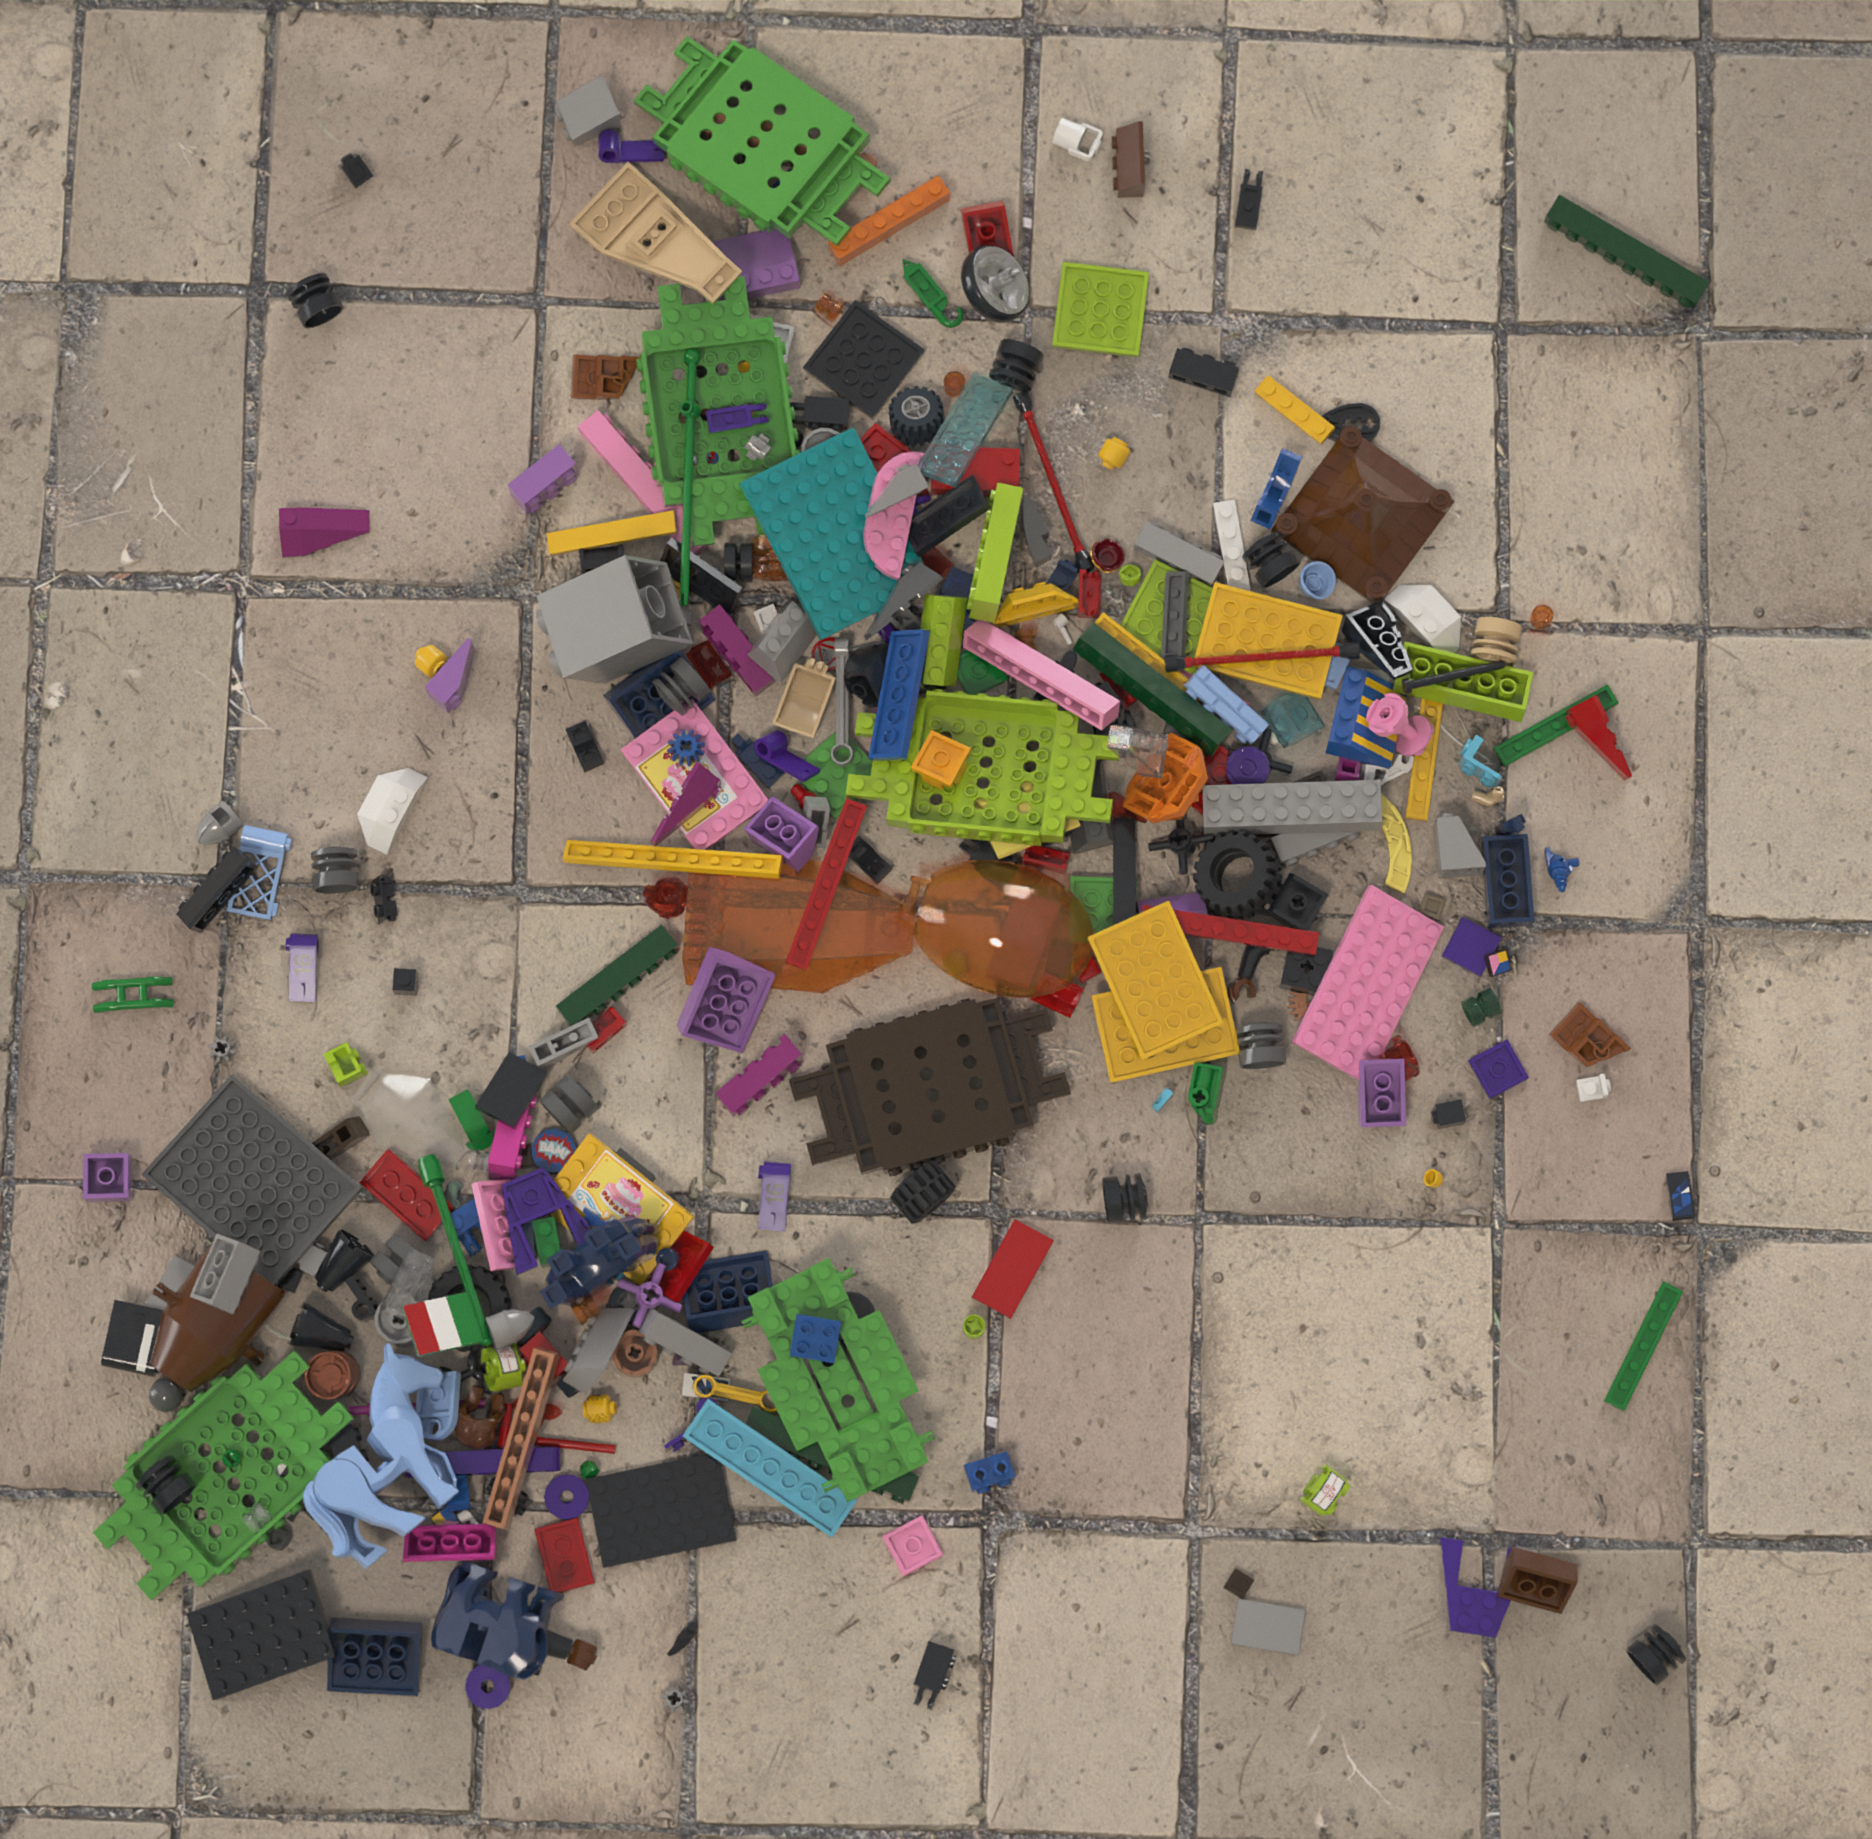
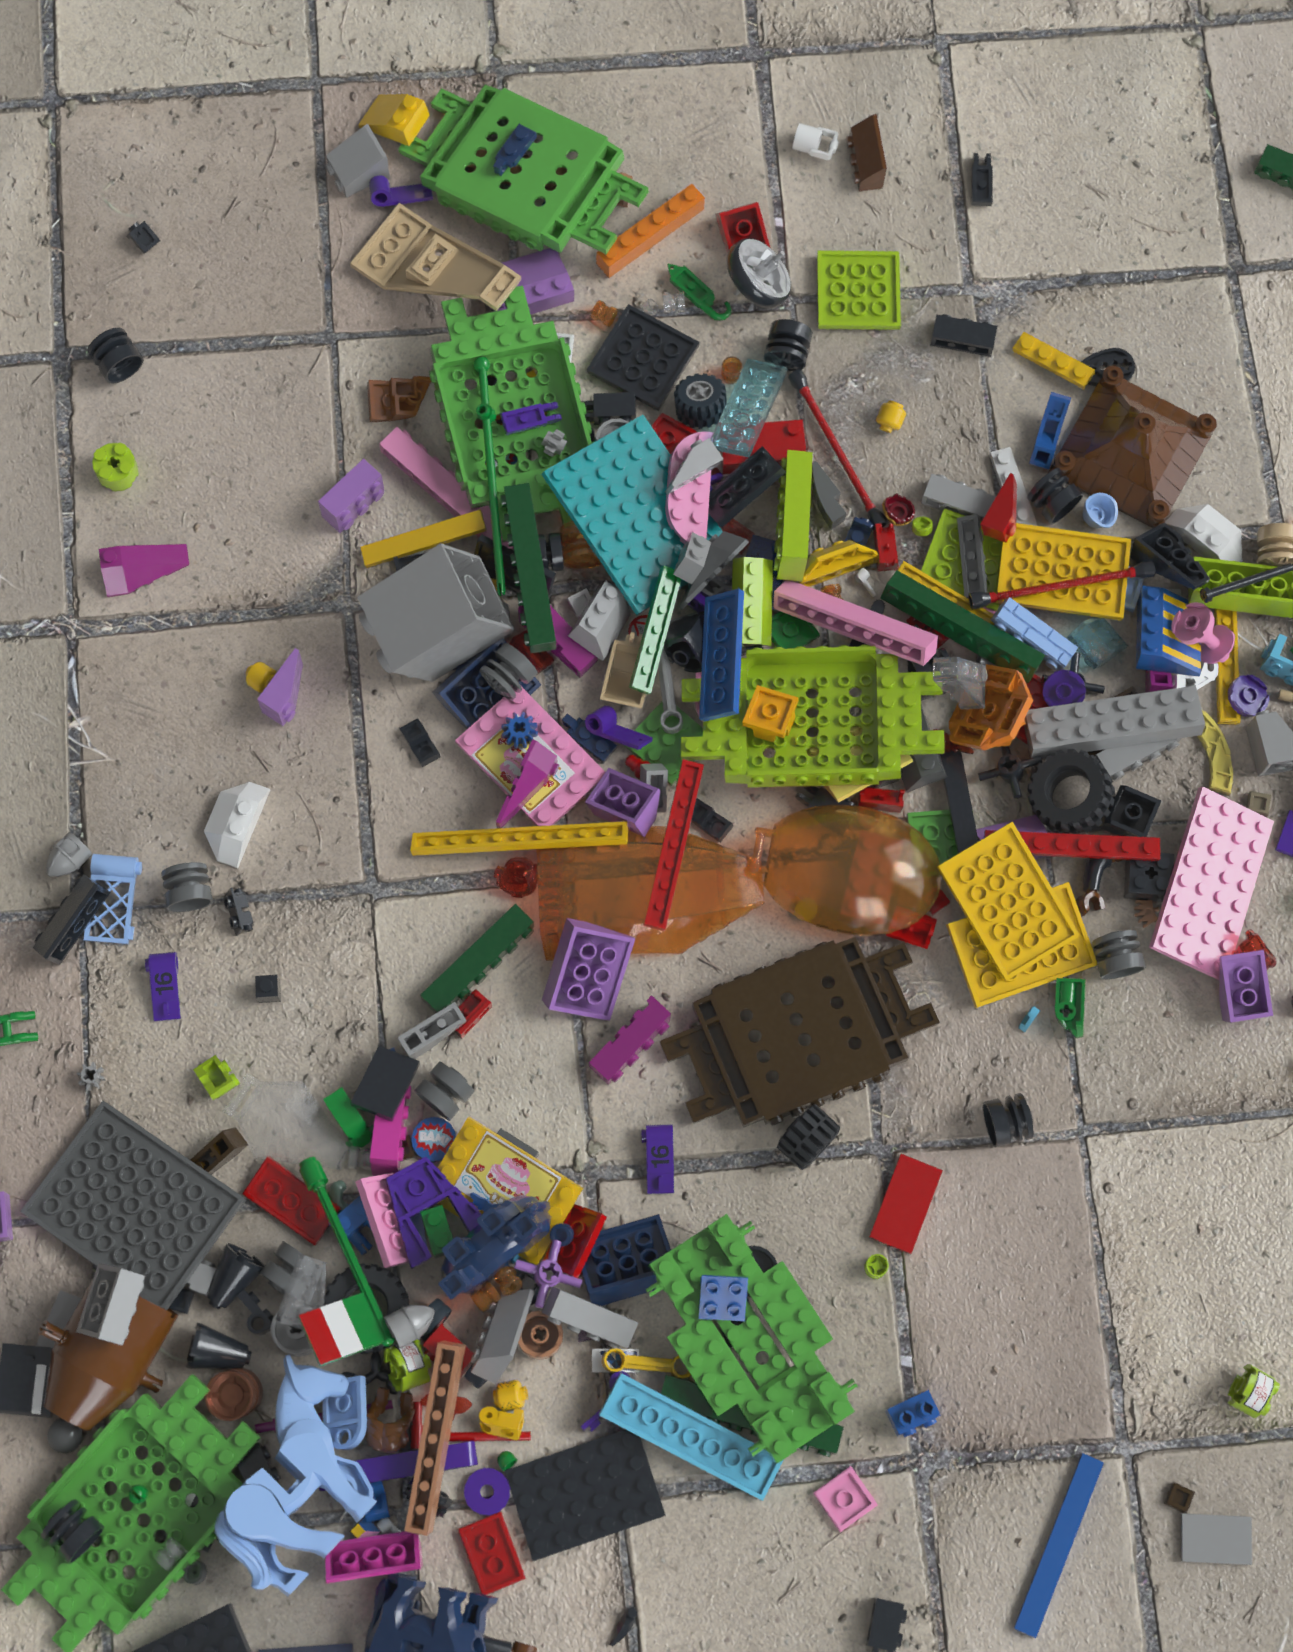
camera: 10 degrees left, 5 degrees down
(300, 408) = (111, 456): none -> lime brick
(588, 1433) = (502, 1423): none -> yellow leg
(609, 1297) = (508, 1280): none -> clear orange wheel
(634, 65) = (396, 117): none -> yellow slope
(715, 581) = (529, 567): none -> dark green brick
(754, 120) = (514, 149): none -> dark blue hinge
(836, 659) = (655, 631): none -> plate
(883, 588) = (692, 558): none -> light grey brick
(898, 303) = (669, 305): none -> clear wheel
(1113, 1614) = (1058, 1545): none -> blue tile
(1211, 575) = (1001, 516): none -> red slope
(1439, 793) = (1248, 695): none -> tile

